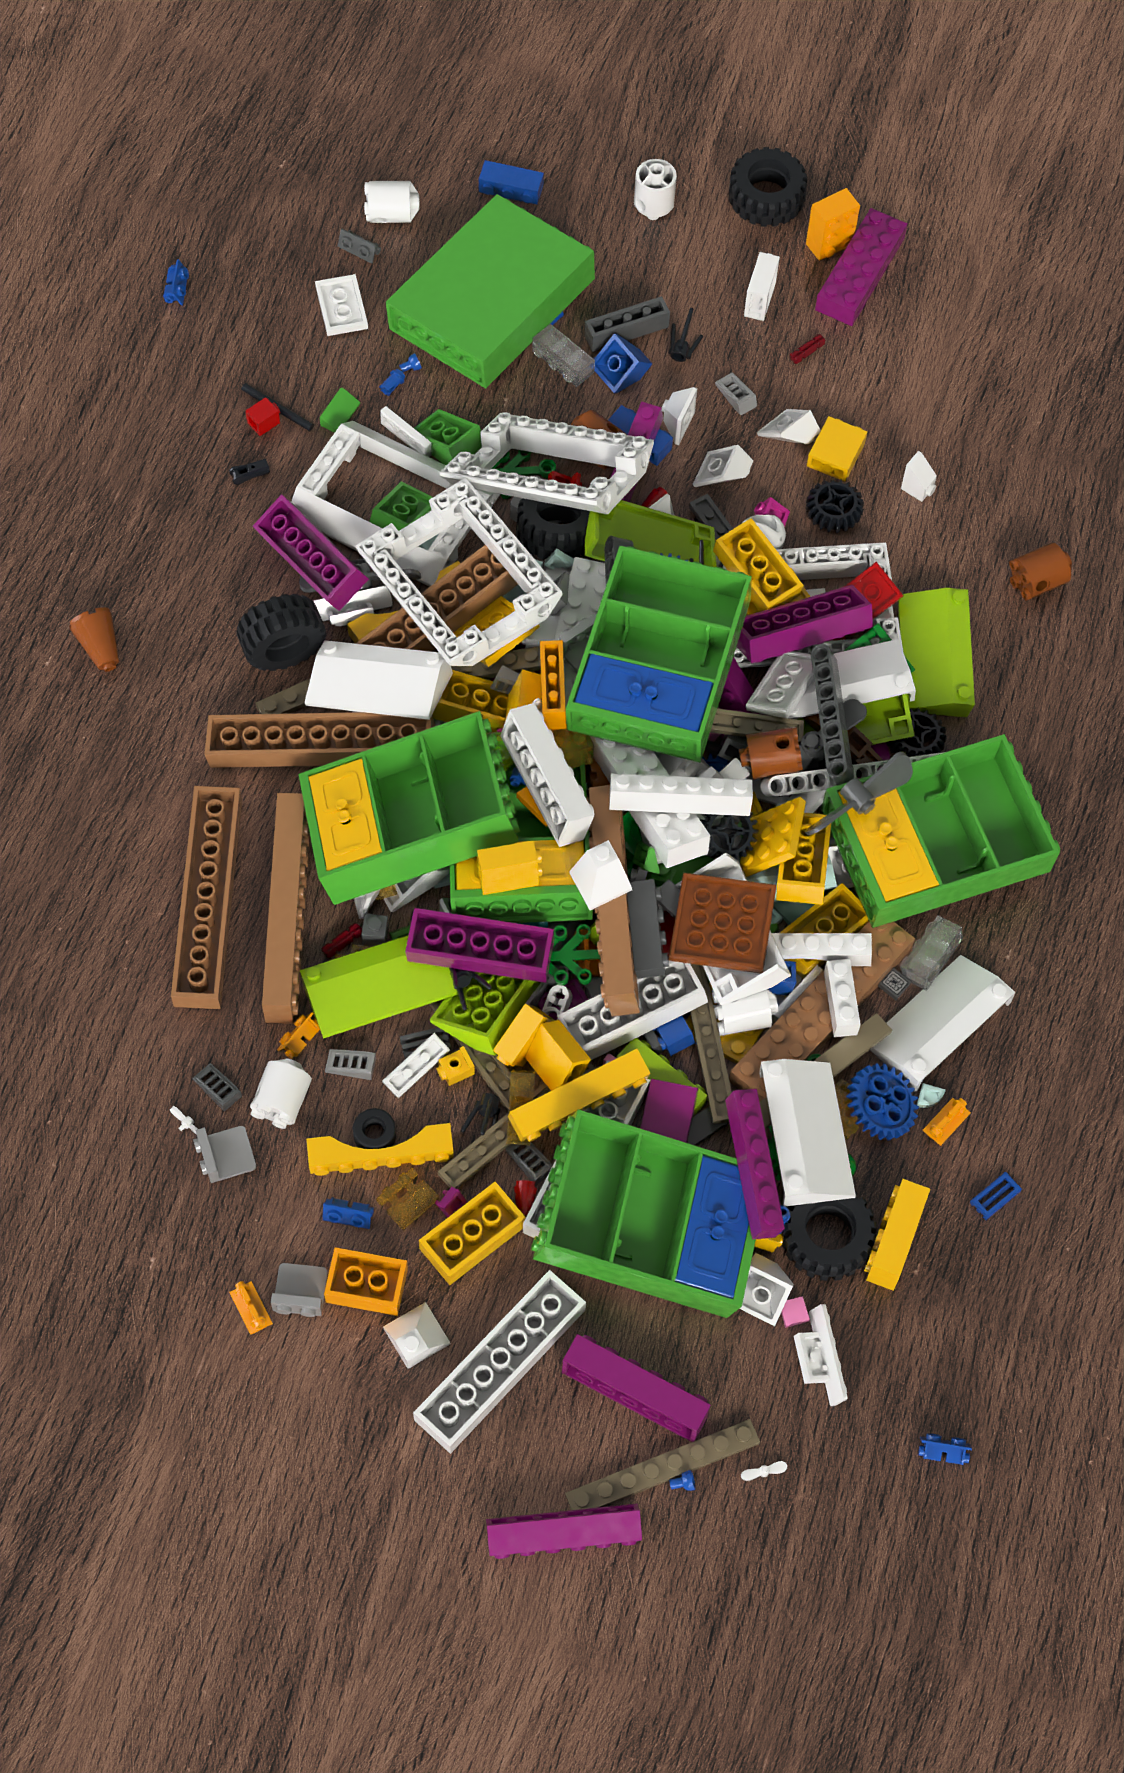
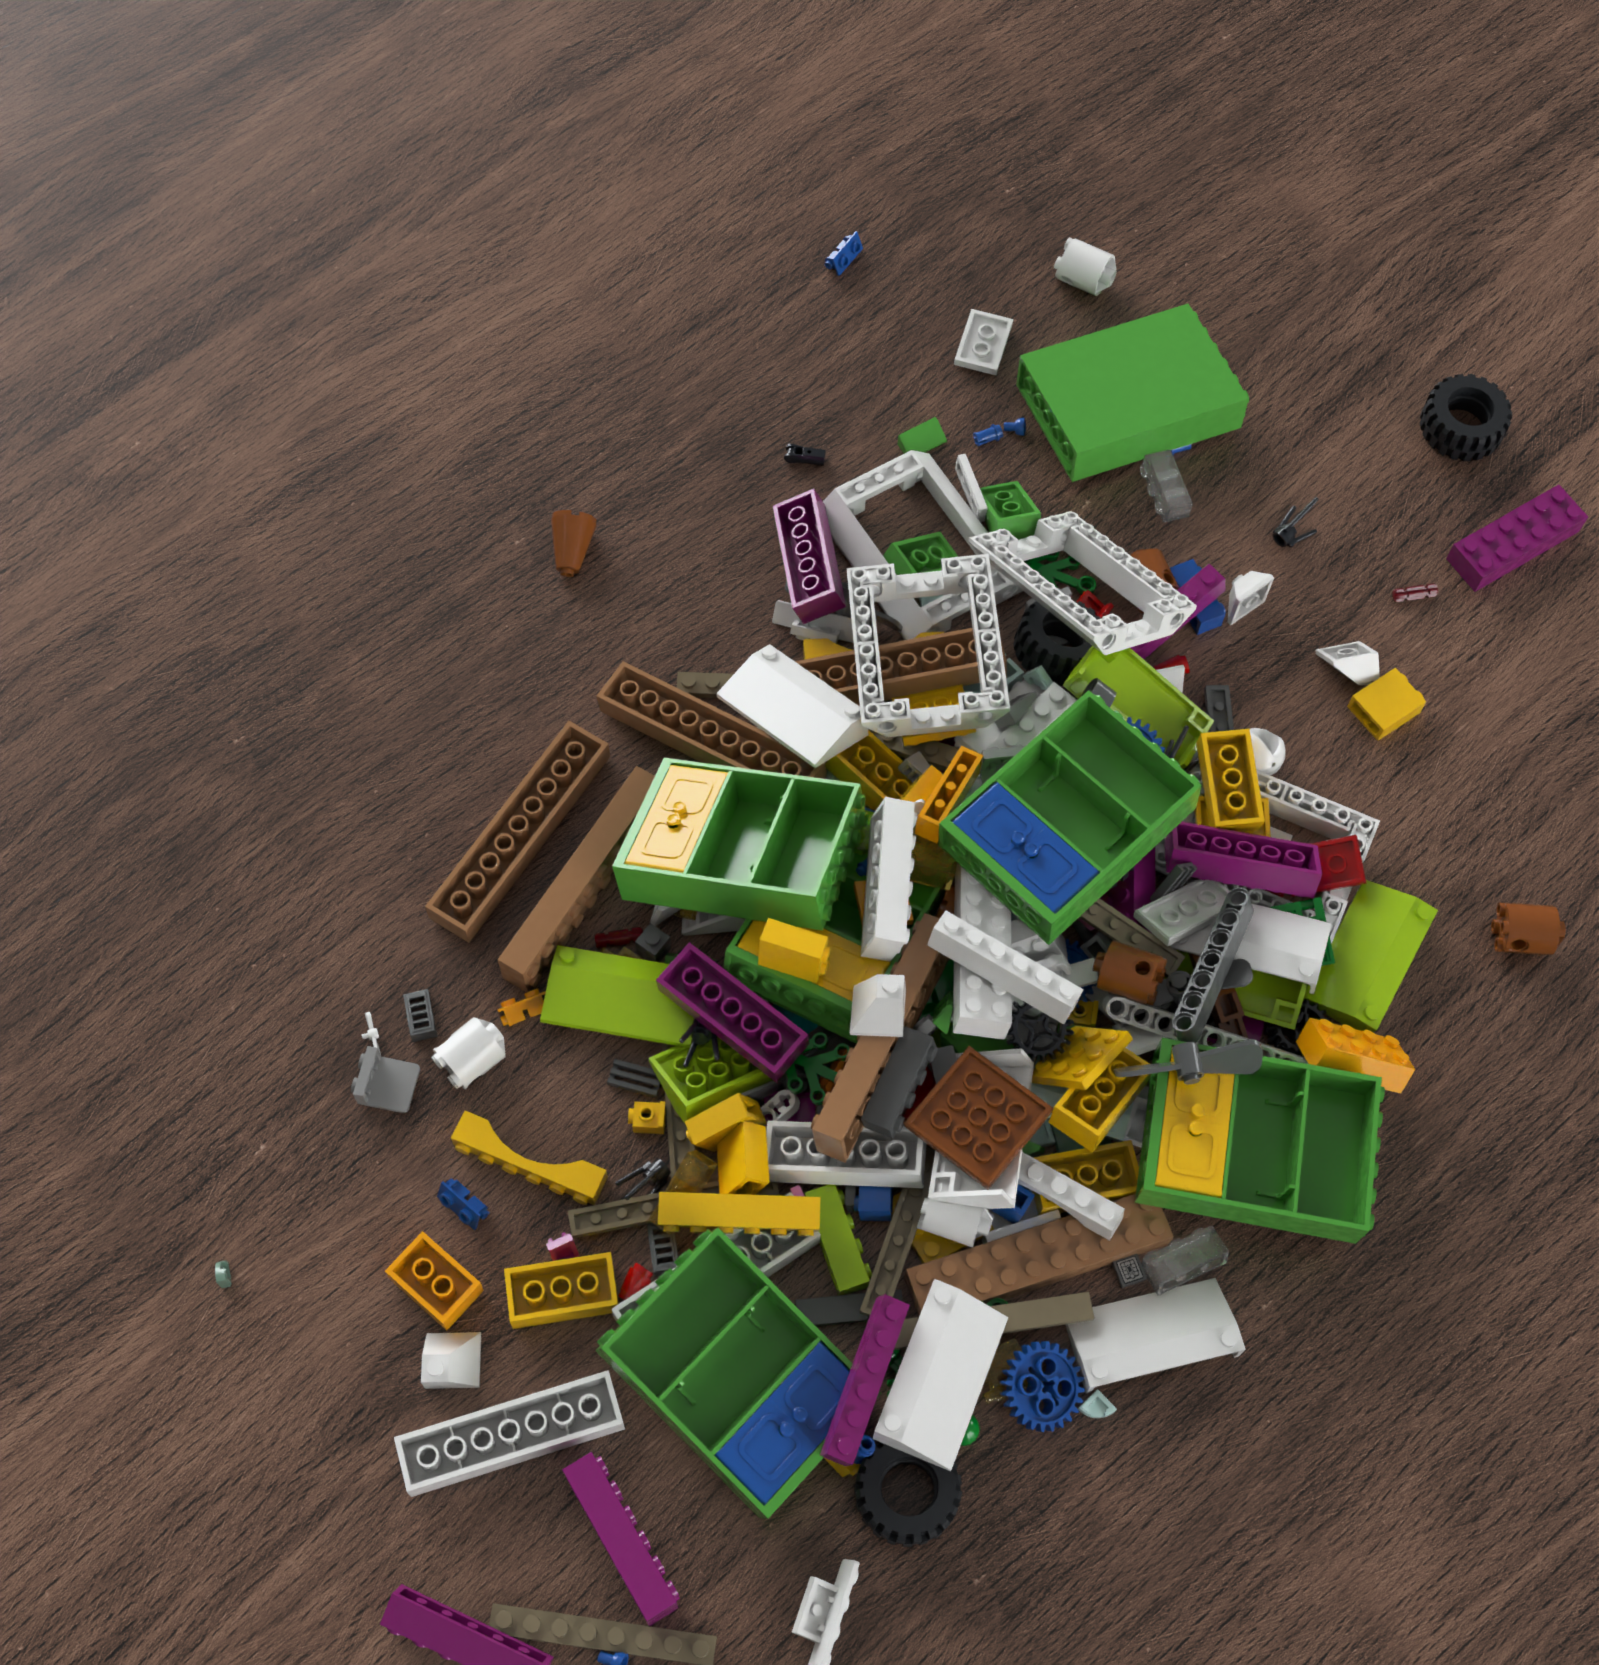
camera: 30 degrees right, 0 degrees up
(188, 1372) = (222, 1274): none -> sand green tile
(250, 1307) = (318, 1244): light orange hinge -> none
(263, 416) = (848, 410): red brick -> none
(281, 632) = (733, 616): black tyre -> none
(283, 410) = (867, 408): black bar -> none
(300, 1290) = (370, 1253): light grey bracket -> none
(358, 246) = (1032, 295): dark grey hinge -> none
(358, 1072) = (564, 1077): light grey slope -> none
(374, 1117) = (531, 1122): black tyre -> none
(412, 1204) = (528, 1228): clear yellow plate -> none
(416, 1065) = (611, 1095): white tile -> none
(511, 182) = (1214, 301): blue brick -> none
(620, 363) = (1218, 520): blue slope -> none
(627, 323) = (1246, 484): dark grey brick -> none
(655, 188) = (1350, 368): white cylinder -> none
(669, 1109) = (819, 1279): magenta tile -> none
(723, 466) = (1261, 666): white slope -> none
(742, 404) = (1323, 610): light grey slope -> none
(761, 286) = (1402, 509): white window -> none
(762, 666) = (1174, 880): none -> dark grey tile
(766, 1290) = (809, 1510): white slope -> none
(772, 507) = (1287, 732): dark pink bracket -> none
(794, 1312) = (827, 1551): bright pink tile -> none
(832, 224) = (1508, 481): light orange brick -> none
(838, 499) = (1341, 767): black gear -> none
(841, 998) = (1058, 1257): white brick -> none
(896, 1234) = (975, 1533): yellow brick -> none
(919, 478) = (1453, 773): white slope -> none
(947, 1120) = (1099, 1442): light orange hinge -> none
(968, 727) = (1356, 1051): none -> light orange brick
(982, 1208) = (1081, 1554): blue tile -> none

